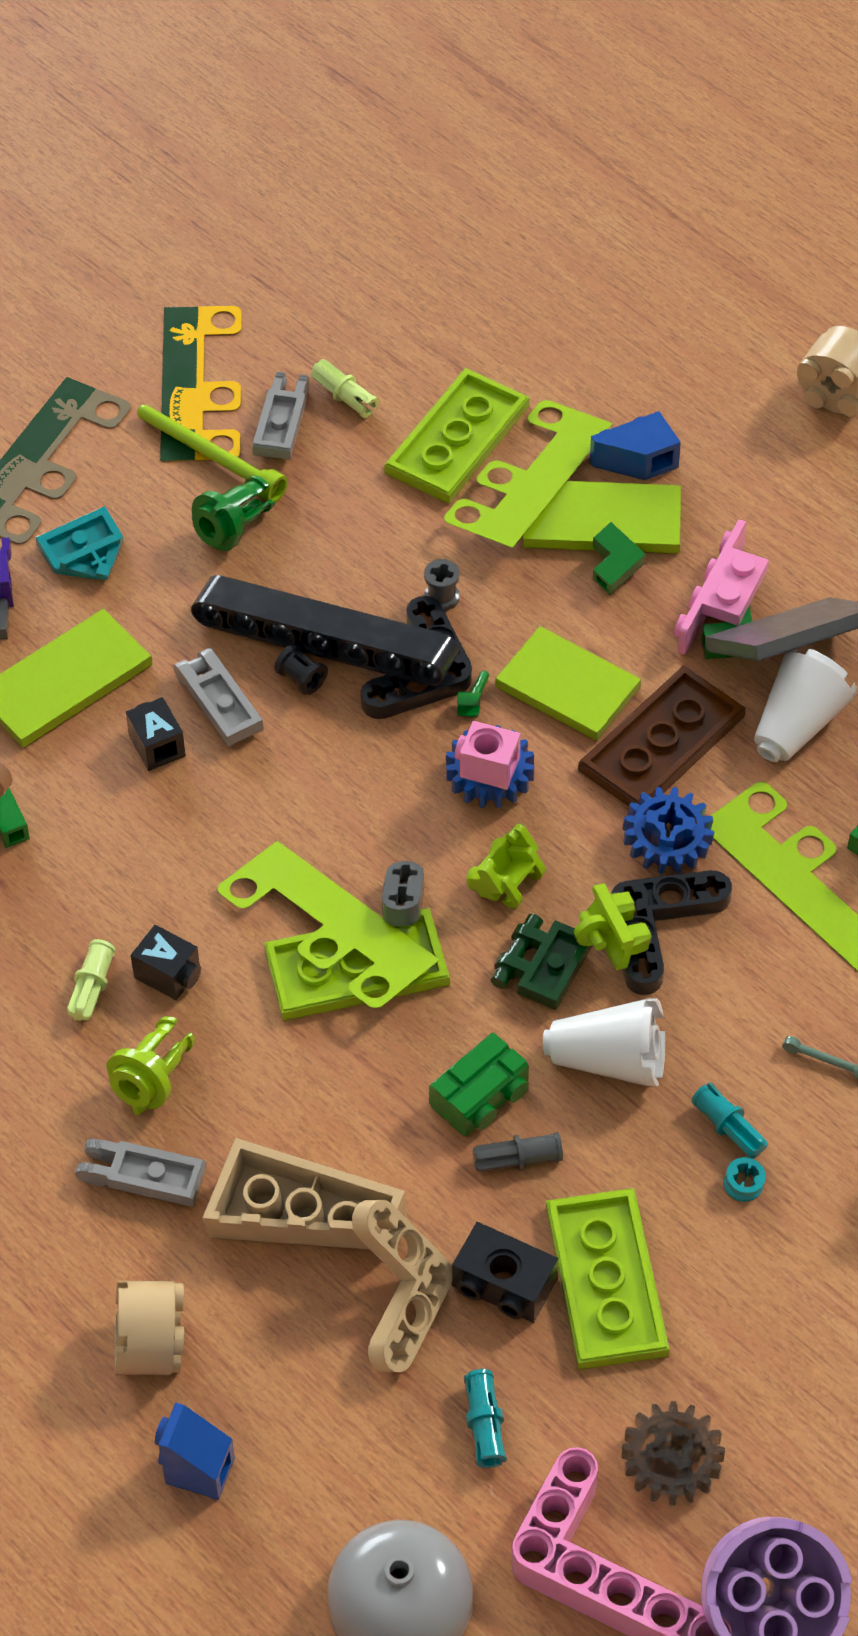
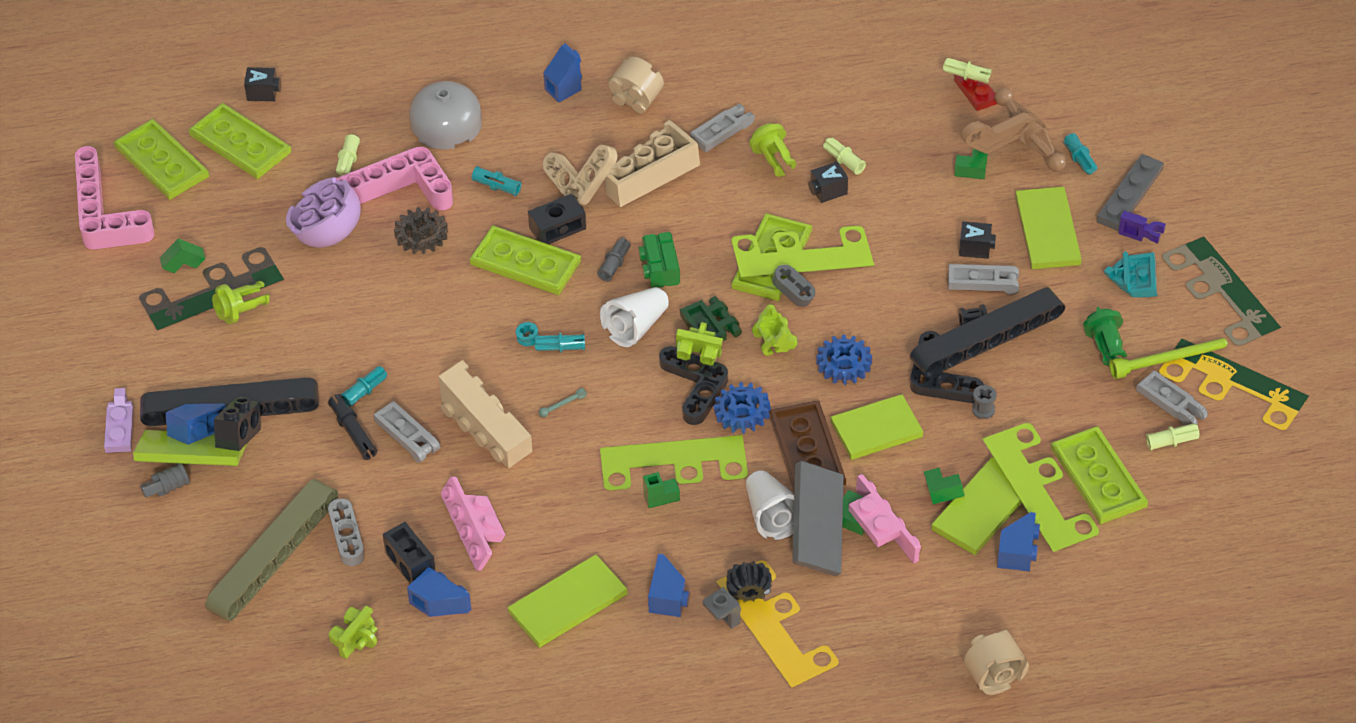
camera: 125 degrees right, 5 degrees down
(469, 702) = (896, 379): green hand -> none
(488, 754) = (836, 338): bright pink brick -> none

